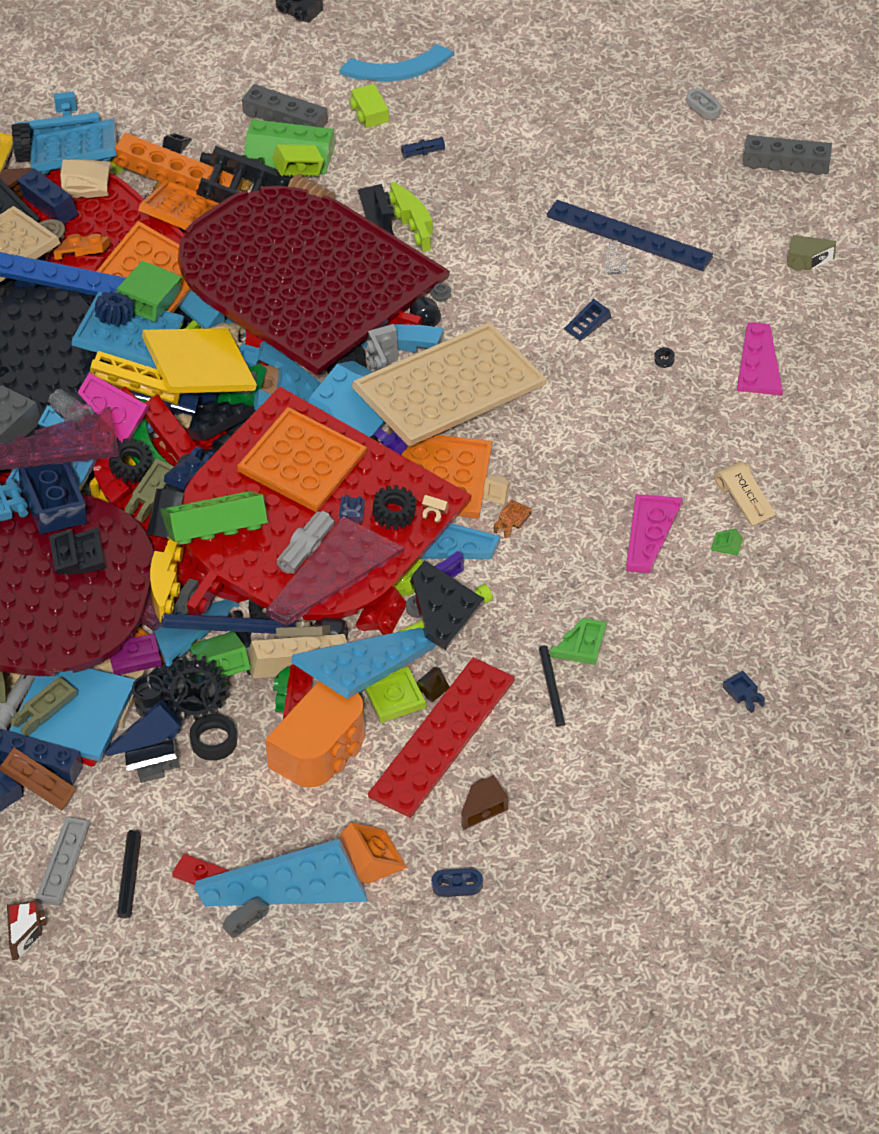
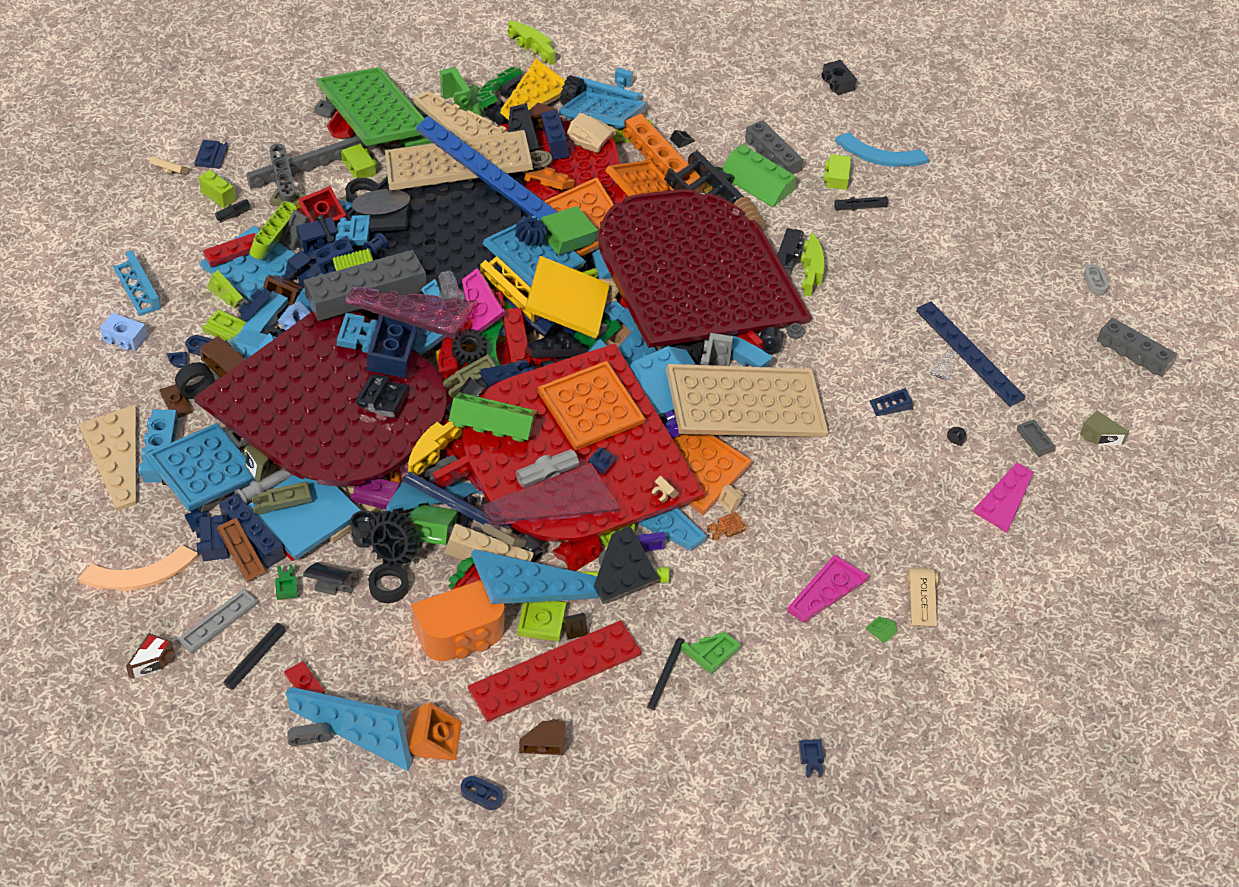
camera: 25 degrees right, 0 degrees up
(108, 791) = (286, 584): none -> green plate
(149, 729) = (343, 554): dark blue slope -> none
(297, 160) = (753, 186): lime brick -> none
(397, 497) = (638, 465): black tyre -> none
(408, 133) = (860, 203): none -> black pin
(421, 147) = (855, 218): dark blue pin -> none
(664, 363) = (932, 464): black bush -> none
(673, 323) = (956, 435): none -> black plate
(750, 289) = (1036, 438): none -> dark grey plate

